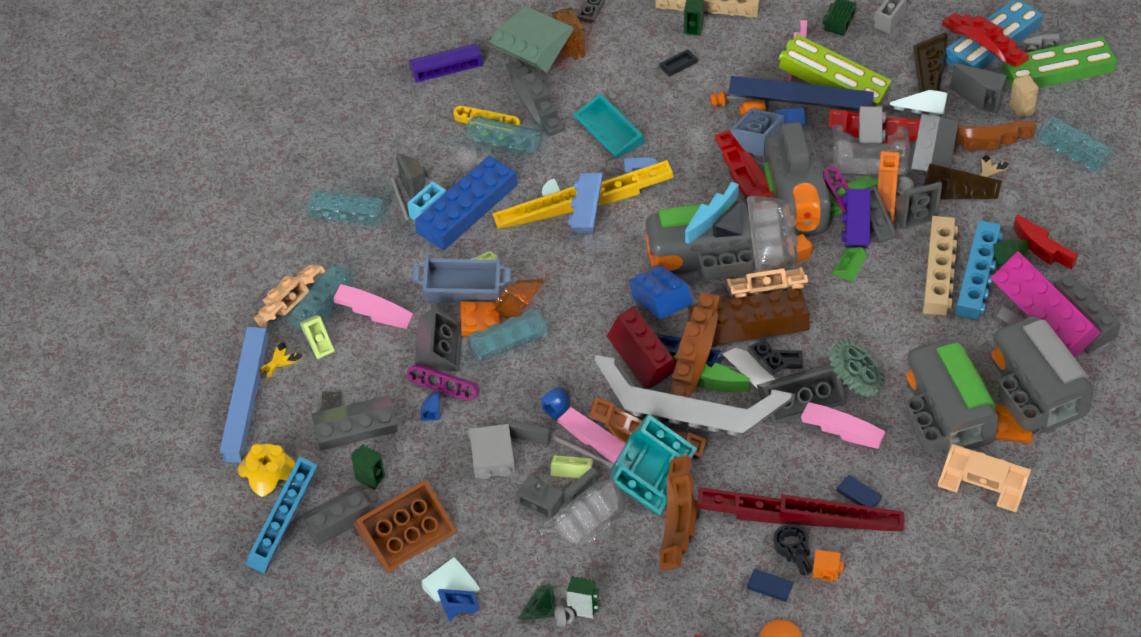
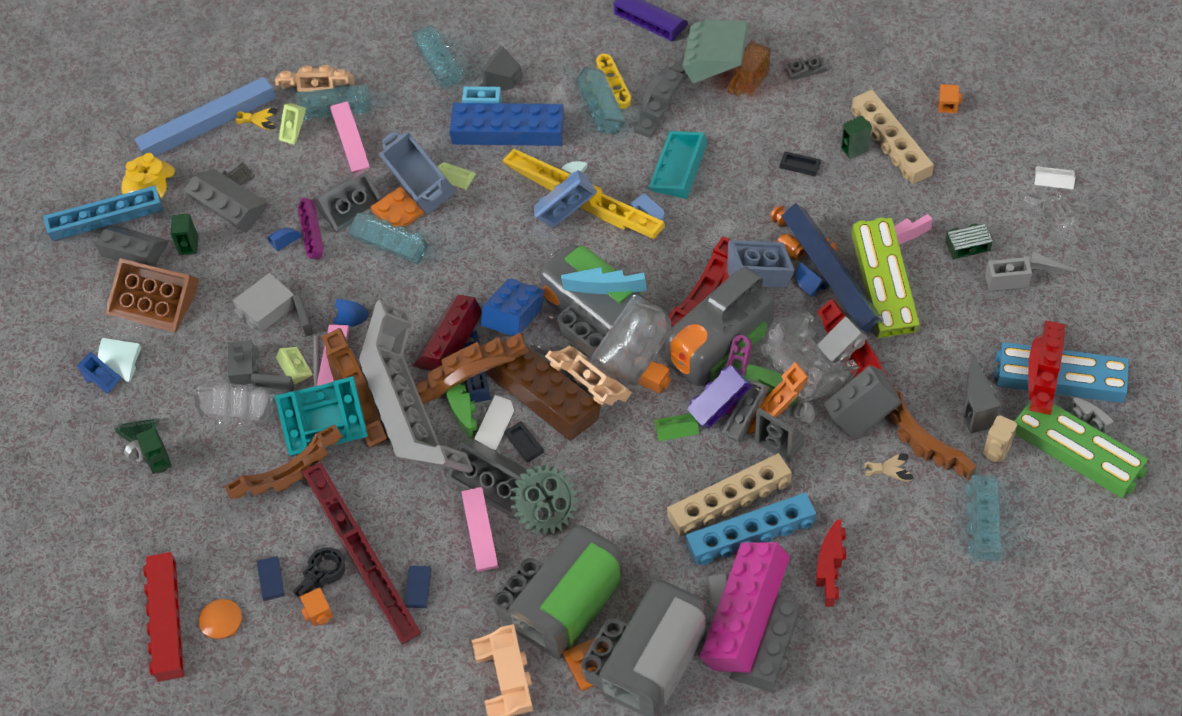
camera: 55 degrees right, 5 degrees up
(516, 297) = (426, 218): clear orange slope -> none
(729, 222) = (605, 301): black slope -> none
(768, 358) = (510, 428): black slope -> none
(928, 101) = (924, 370): light aqua slope -> none
(930, 61) = (974, 342): dark brown wing -> none
(961, 184) = (837, 446): dark brown wing -> none
(1006, 249) = (793, 540): dark green slope -> none

